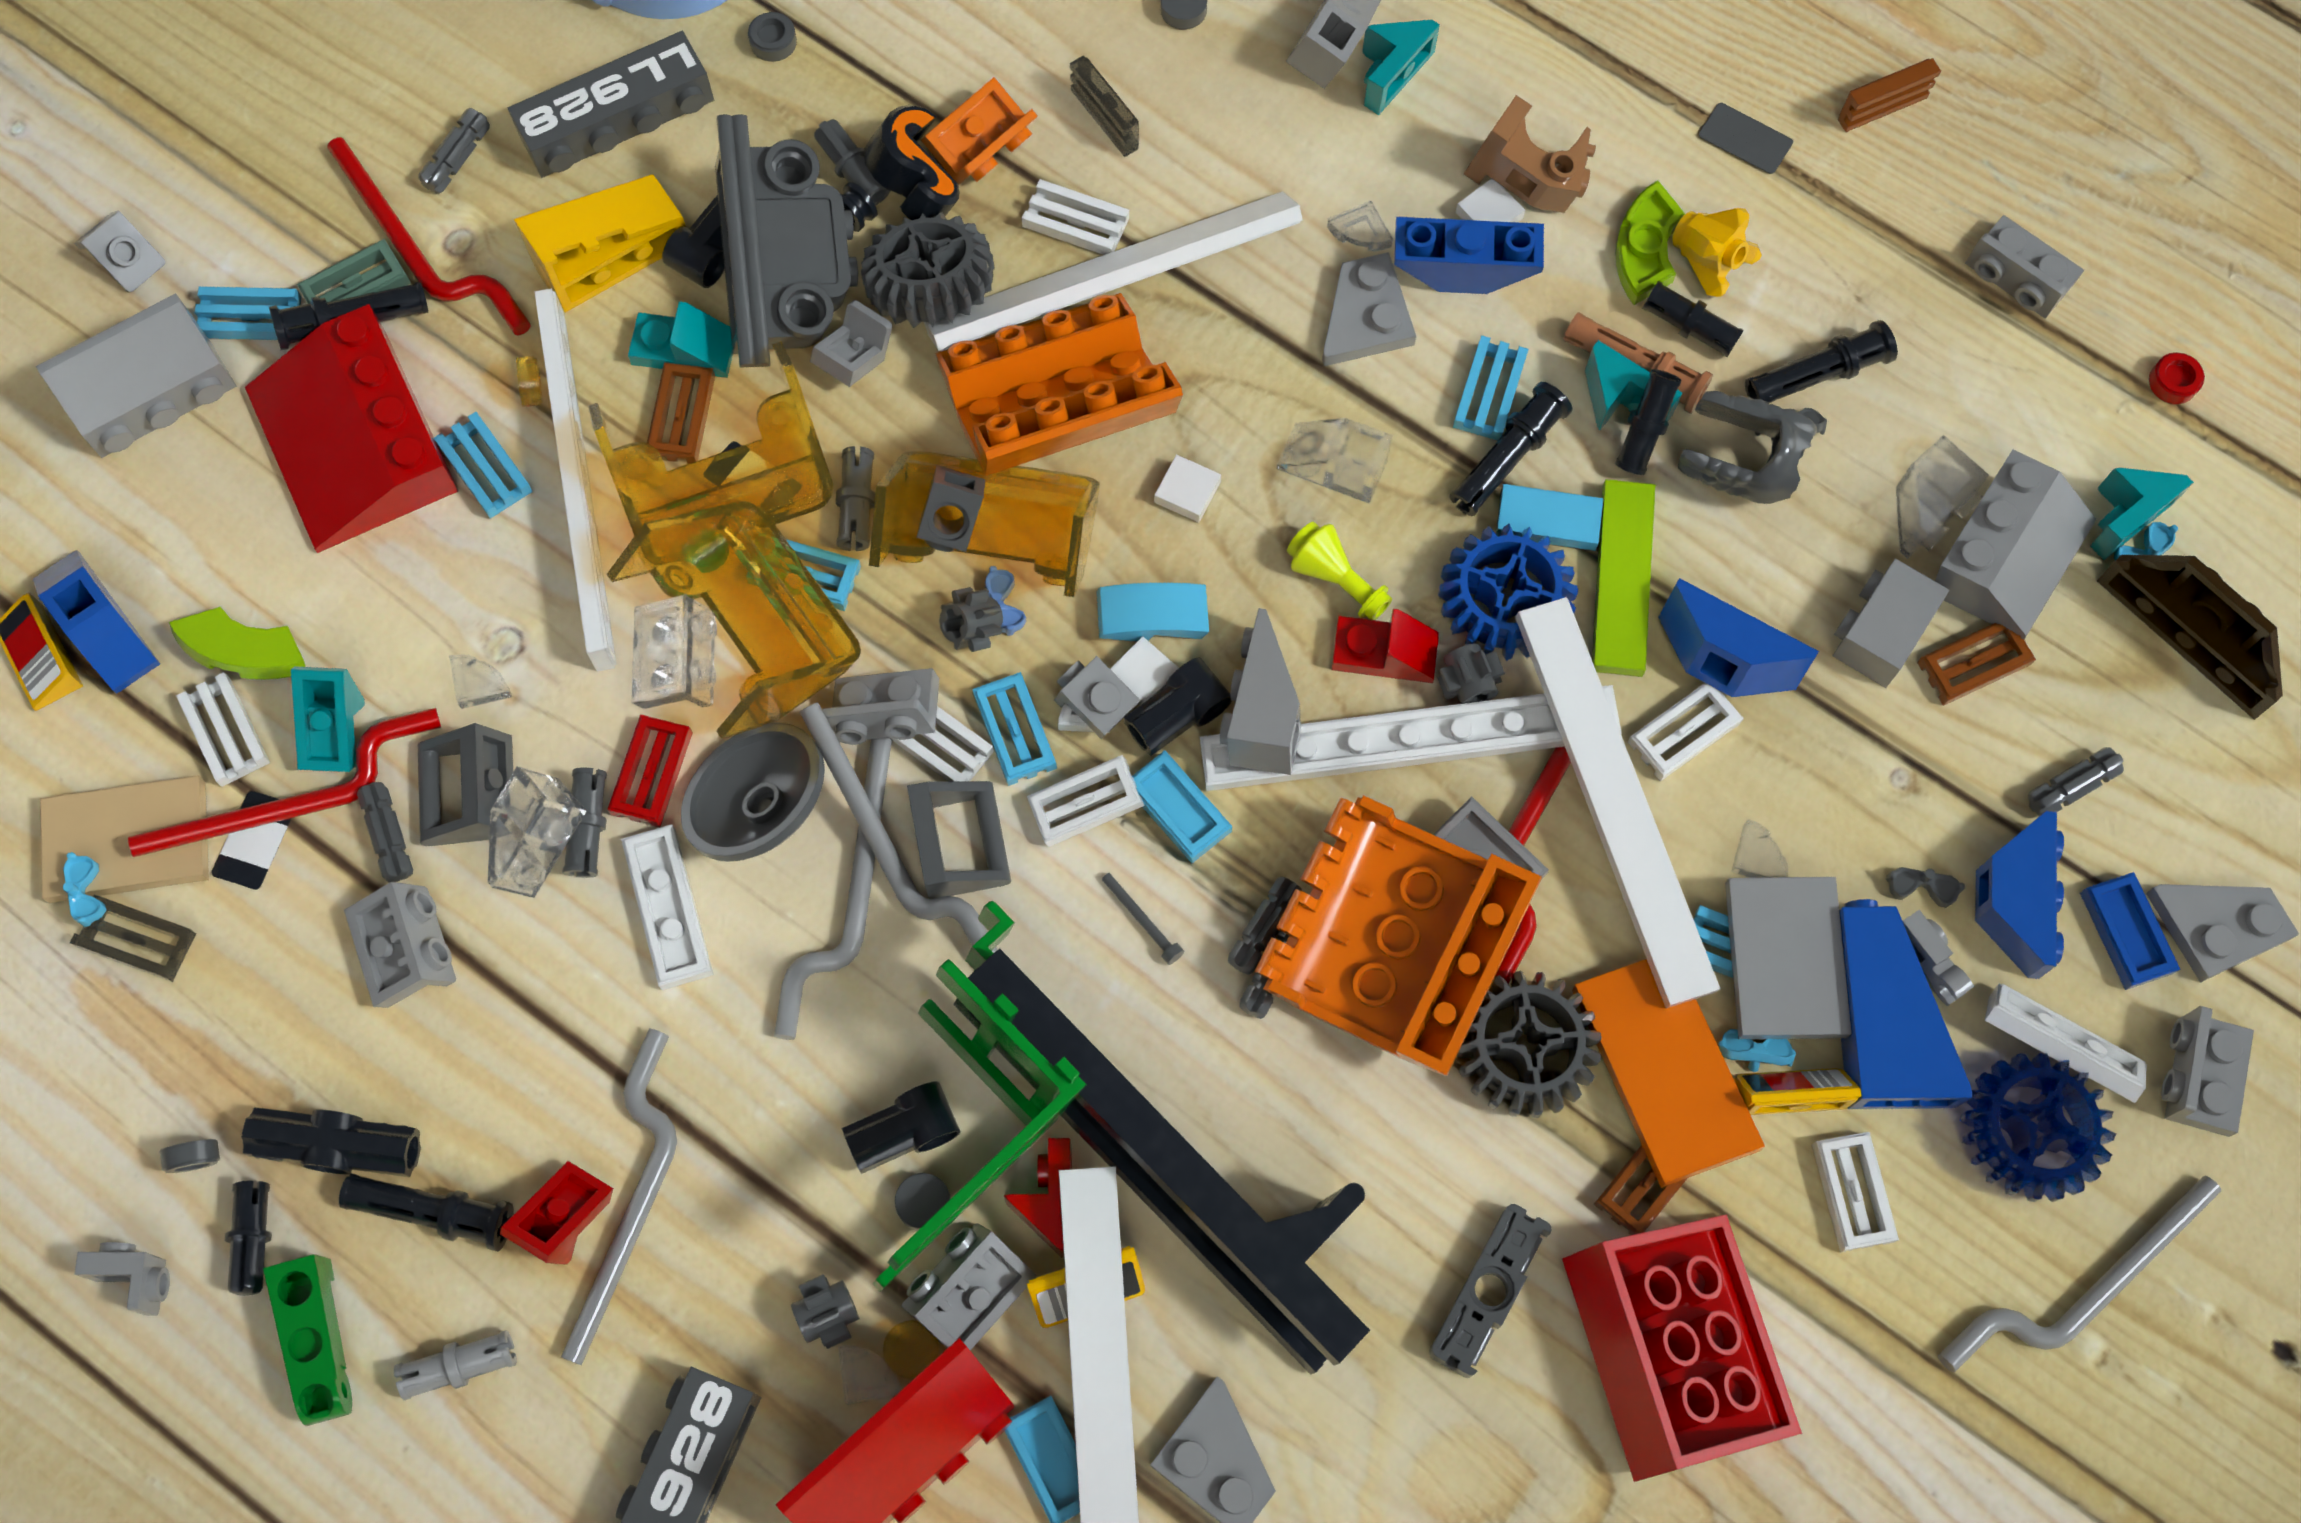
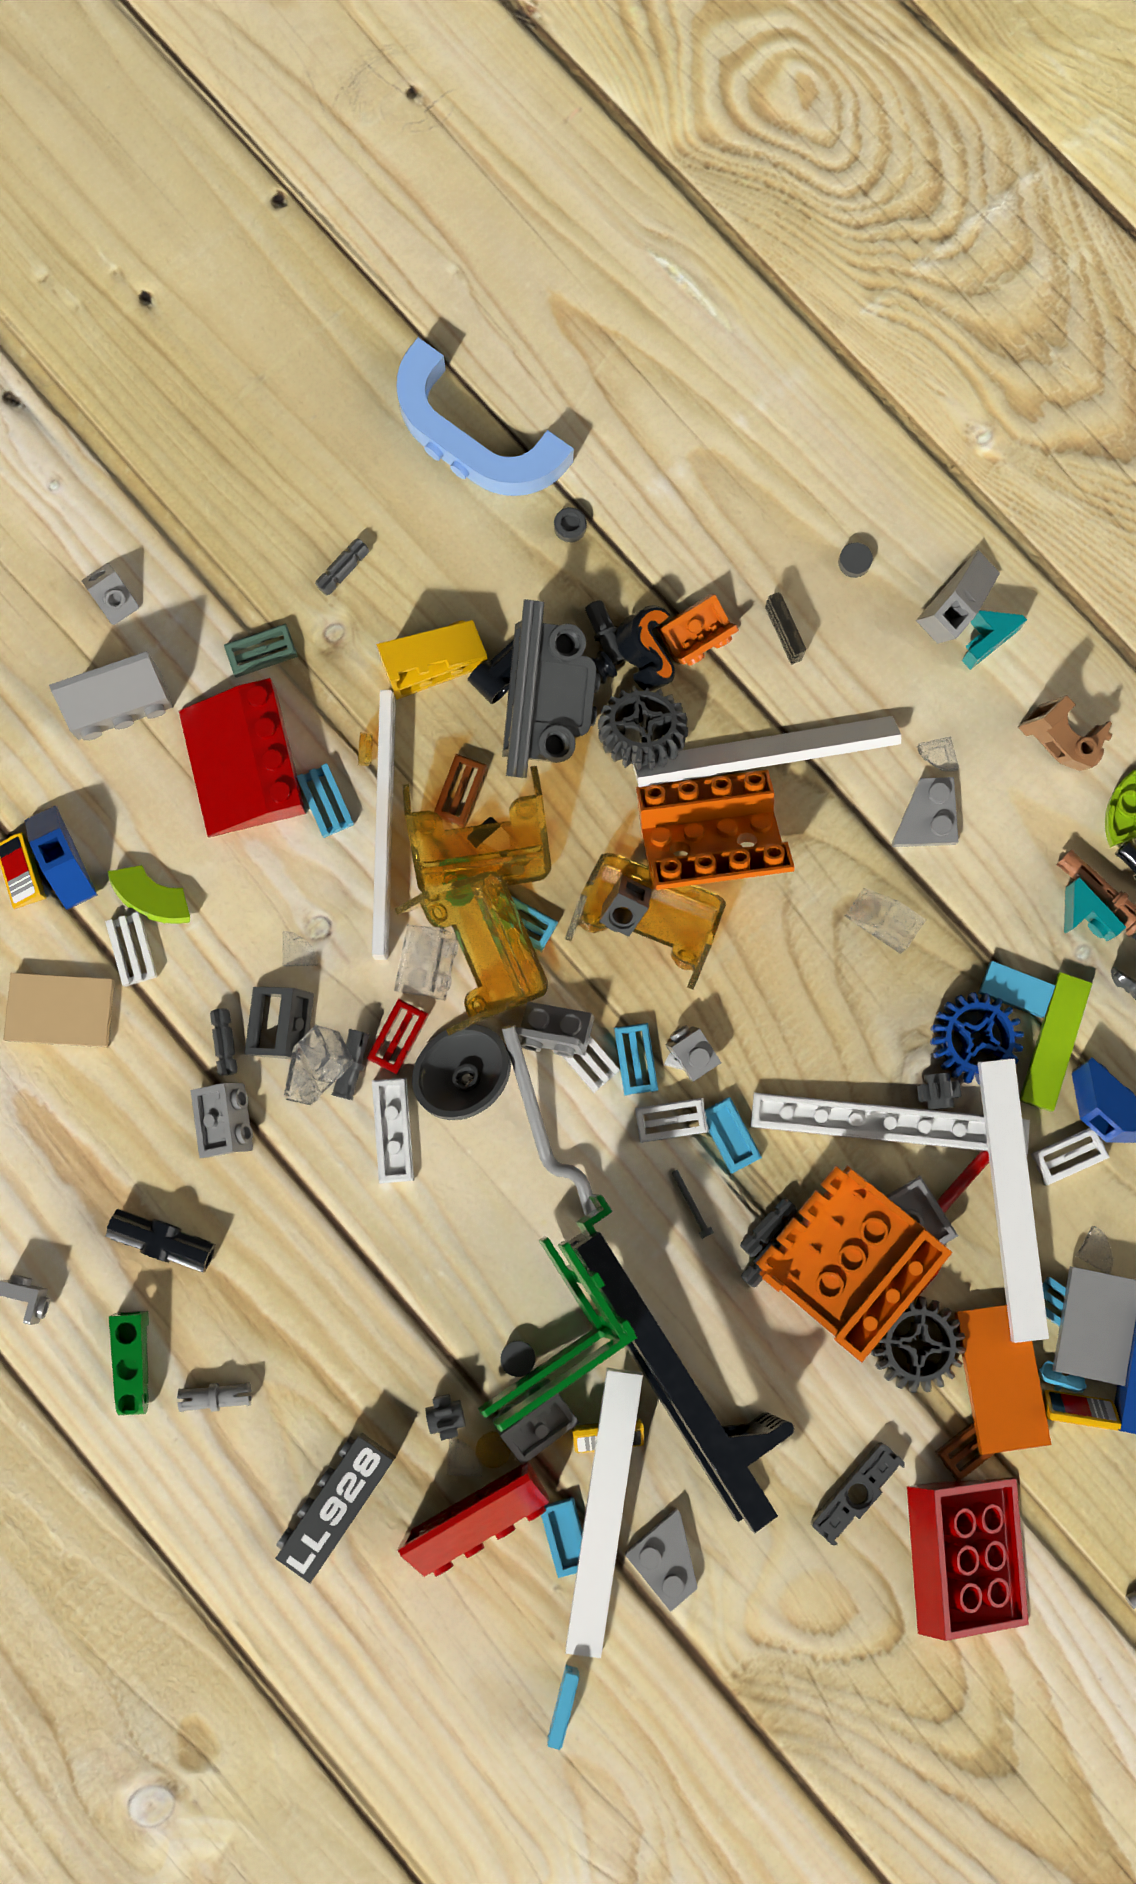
camera: 10 degrees right, 10 degrees up
(78, 874) = (28, 1030): medium azure piece -> none
(177, 953) = (31, 1062): clear smoke tile -> none
(189, 1156) = (72, 1230): dark grey tile -> none
(241, 303) = (161, 650): medium azure tile -> none
(248, 1237) = (100, 1289): black axle -> none
(250, 851) = (139, 1027): sticker -> none
(295, 805) = (170, 1012): red piece -> none
(299, 321) = (230, 676): black pin -> none
(324, 718) = (197, 961): teal slope -> none
(412, 254) = (301, 634): red piece -> none
(450, 1214) = (226, 1302): black pin -> none
(558, 1214) = (292, 1320): red slope -> none
(612, 104) = (454, 557): dark grey brick -> none
(640, 1202) = (345, 1317): light grey piece -> none
(685, 339) = (469, 740): teal slope -> none
(854, 346) = (582, 770): light grey bracket -> none
(855, 498) = (563, 878): dark grey pin -> none
(856, 907) = (512, 1157): light grey piece -> none
(916, 1122) = (522, 1309): black piece -> none
(937, 881) = (567, 1126): dark grey tile -> none
(971, 619) = (623, 981): dark grey gear -> none
(1000, 586) = (644, 958): medium blue piece -> none
(1043, 1211) = (593, 1385): red slope -> none
(1078, 211) = (756, 695): white tile -> none
(1144, 670) = (727, 1039): white tile -> none
(1152, 609) = (741, 999): medium azure slope -> none
(1187, 488) = (782, 917): white tile -> none
(1189, 698) = (750, 1067): black piece -> none
(1266, 712) = (802, 1088): light grey slope -> none
(1321, 555) = (861, 985): neon yellow piece -> none
(1386, 649) = (887, 1057): red slope -> none
(1468, 253) = (1008, 792): blue slope -> none
(1490, 203) = (1029, 759): white tile -> none
(1500, 353) = (1013, 865): medium azure tile -> none
(1524, 432) = (1014, 927): black pin -> none
(1648, 422) = (1098, 942): black pin -> none
(1833, 1193) = (1087, 1482): white tile -> none

